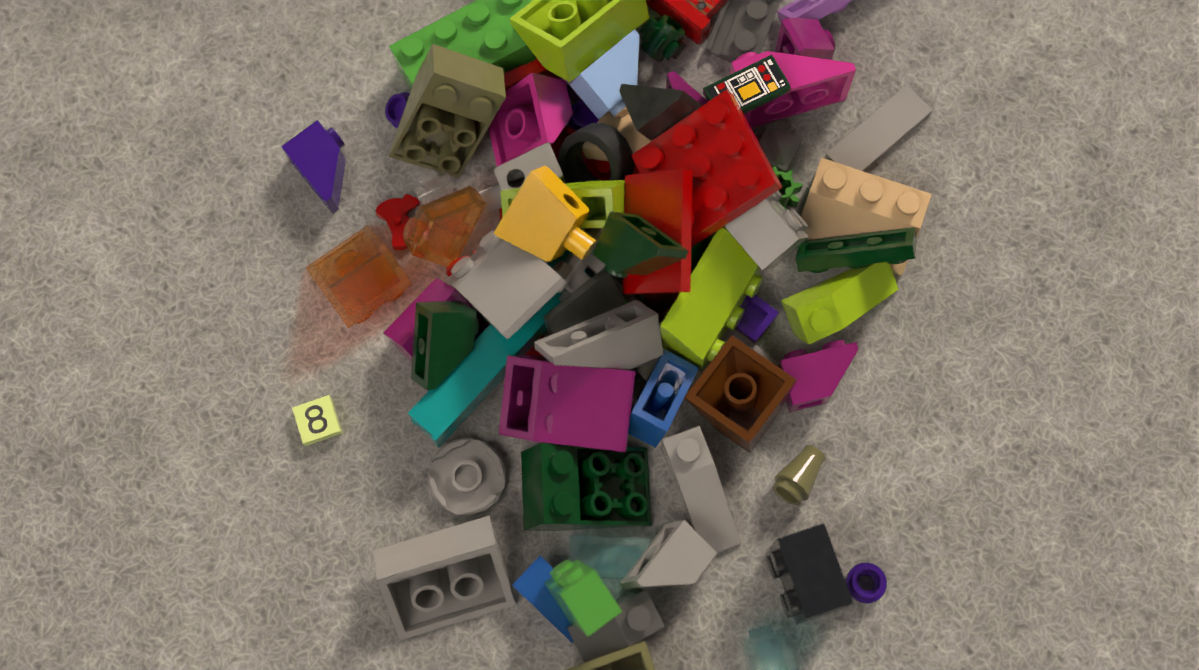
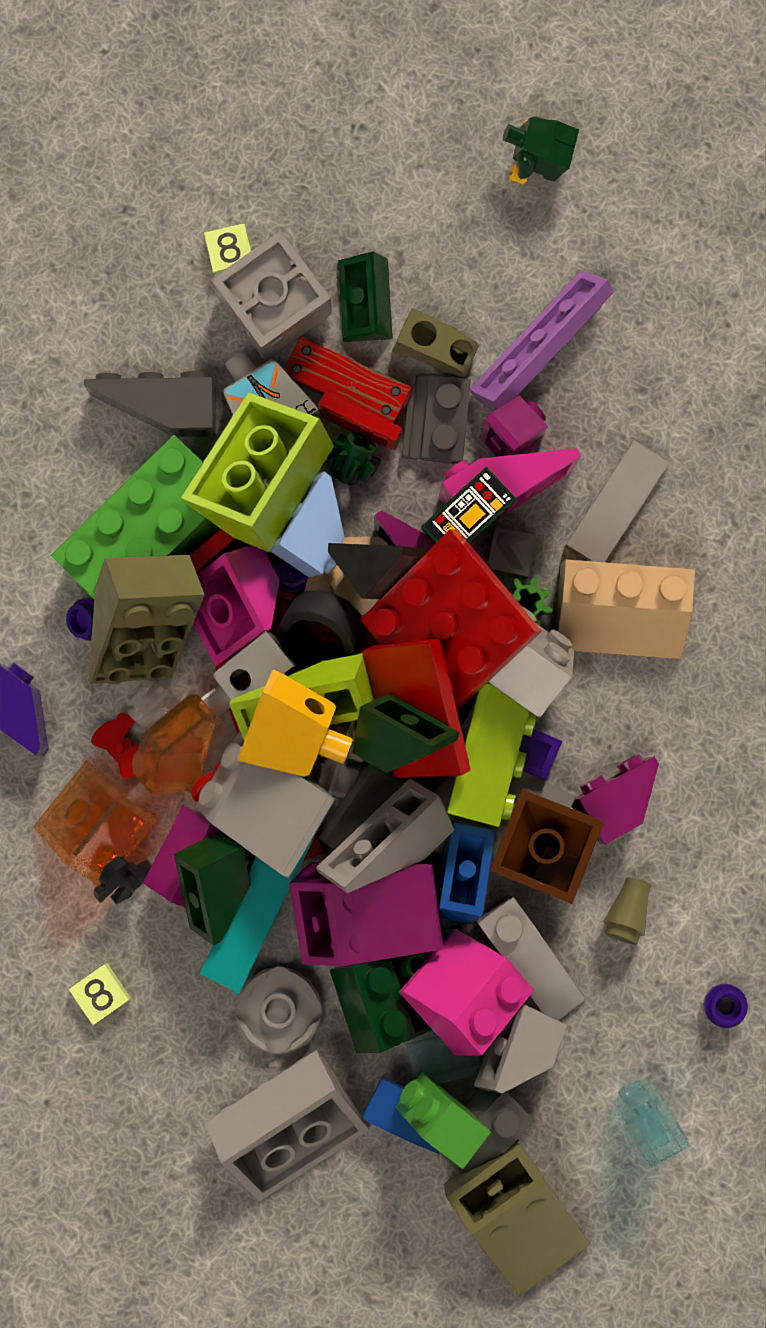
camera: 25 degrees left, 10 degrees up
(364, 317) = (122, 874): none -> black piece
(634, 497) = (466, 993): none -> dark pink slope
(808, 574) = (670, 1023): black brick -> none
(838, 301) = (623, 711): lime slope -> none
(857, 250) = (632, 651): dark green plate -> none

